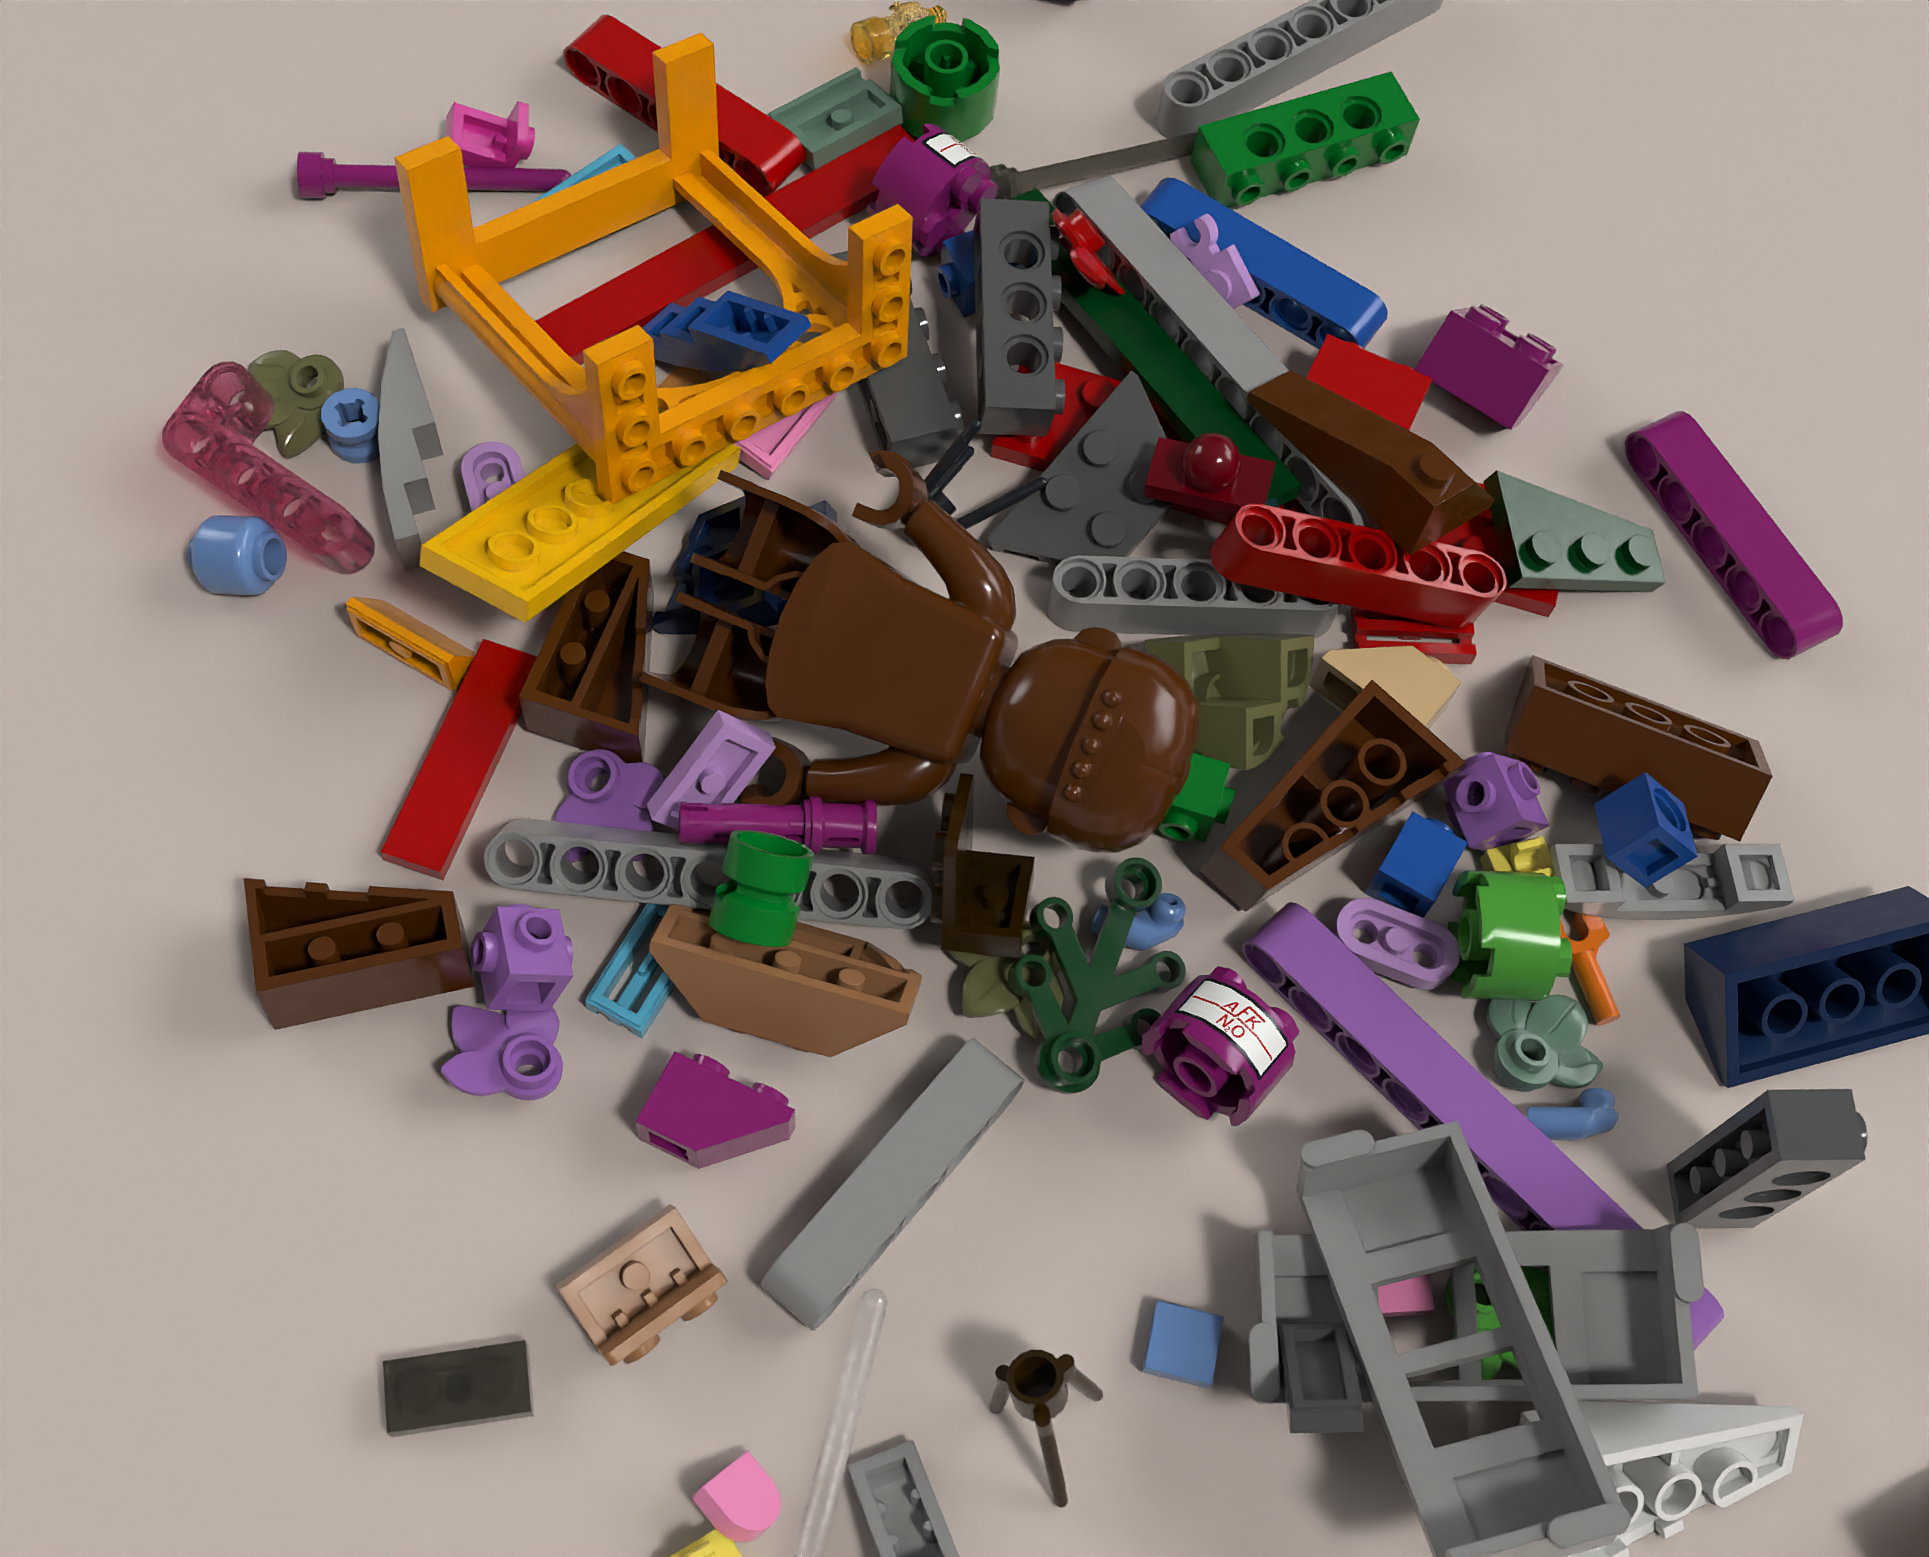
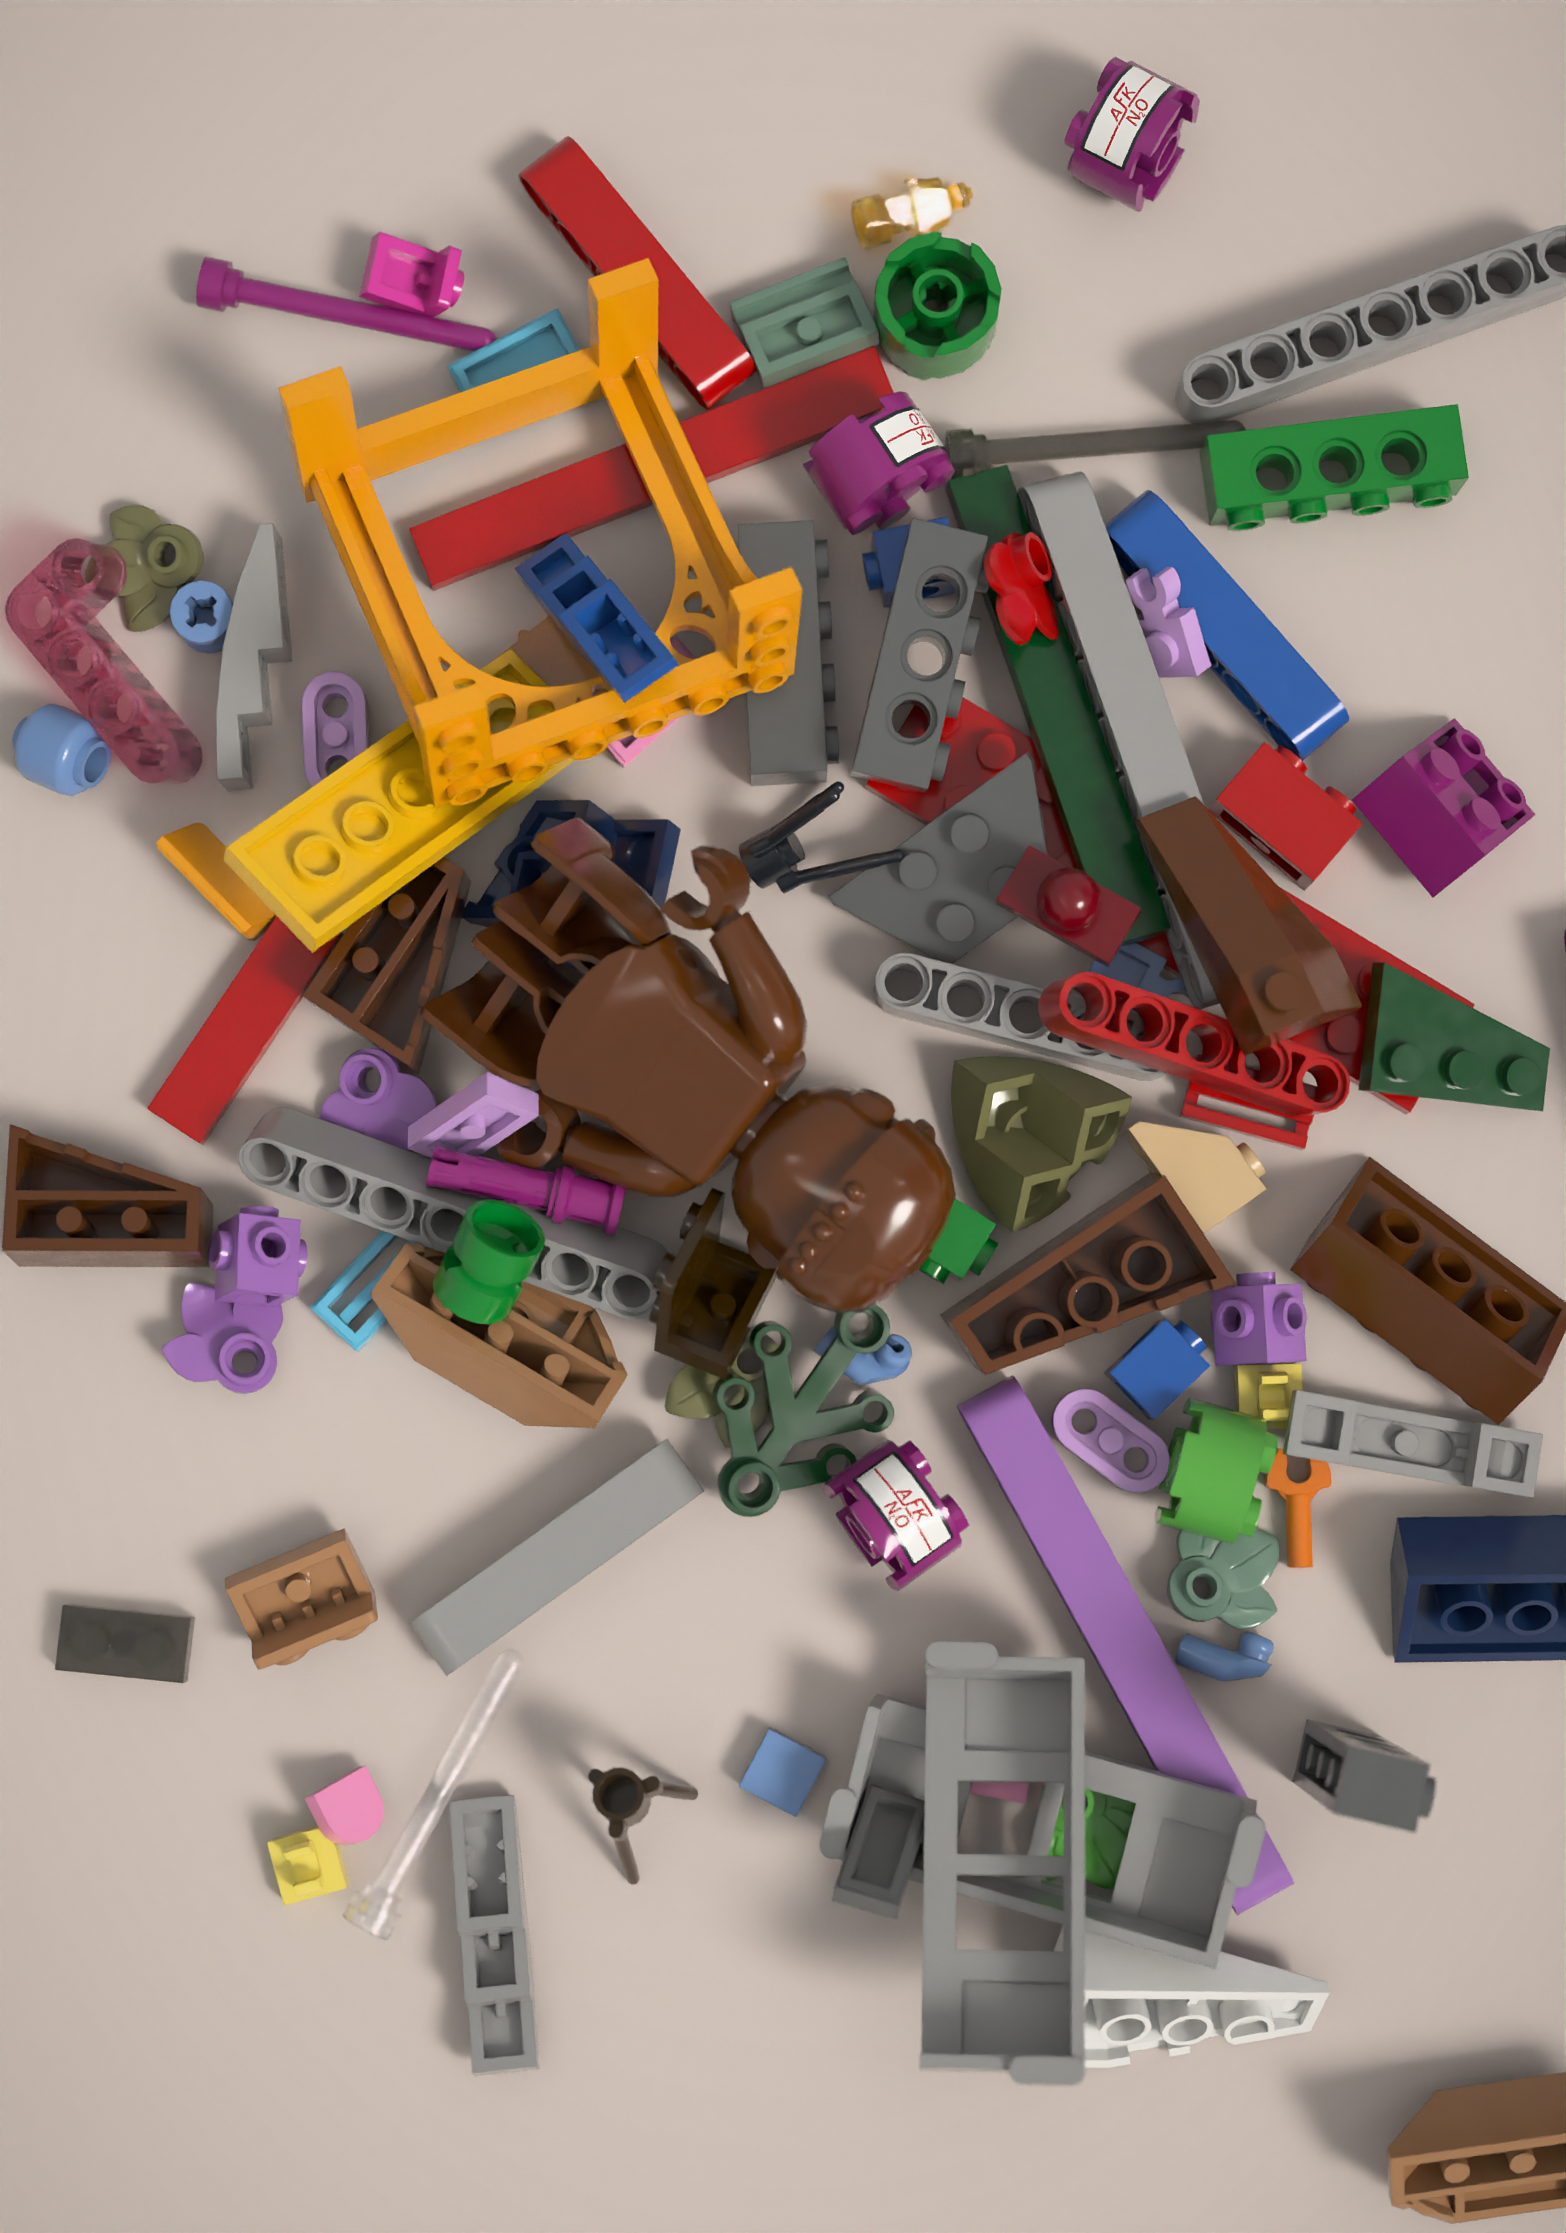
camera: 25 degrees right, 20 degrees up
(710, 1117) = (397, 1453): magenta slope -> none
(1645, 830) = (1394, 1399): blue brick -> none

